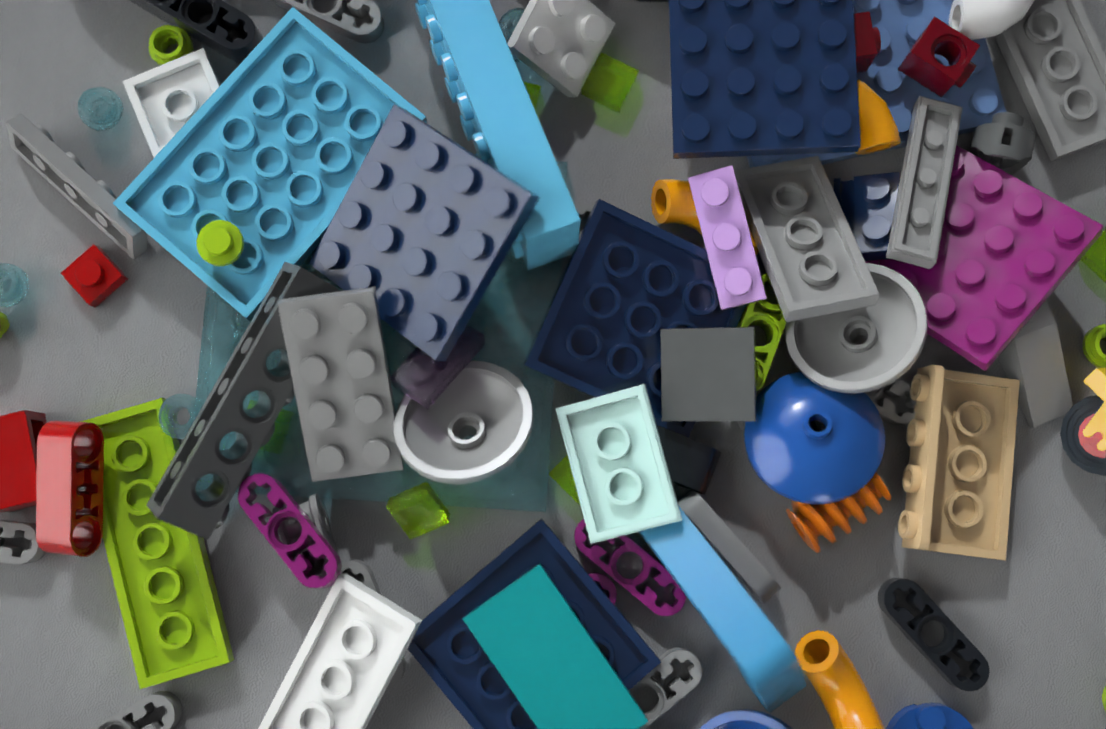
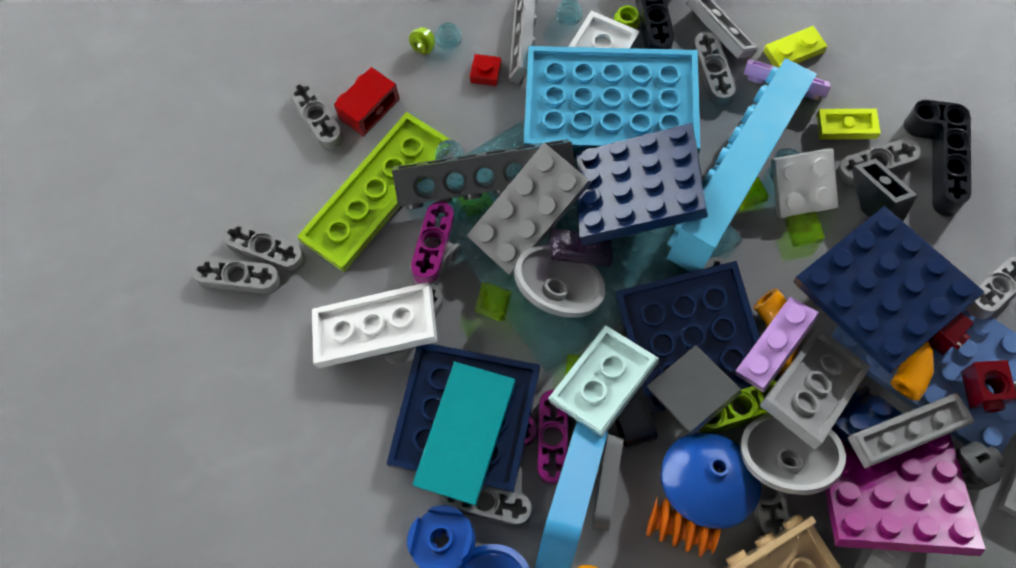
camera: 55 degrees right, 15 degrees down
(69, 488) = (373, 130): red beam -> none
(220, 243) = (551, 103): lime plate -> none

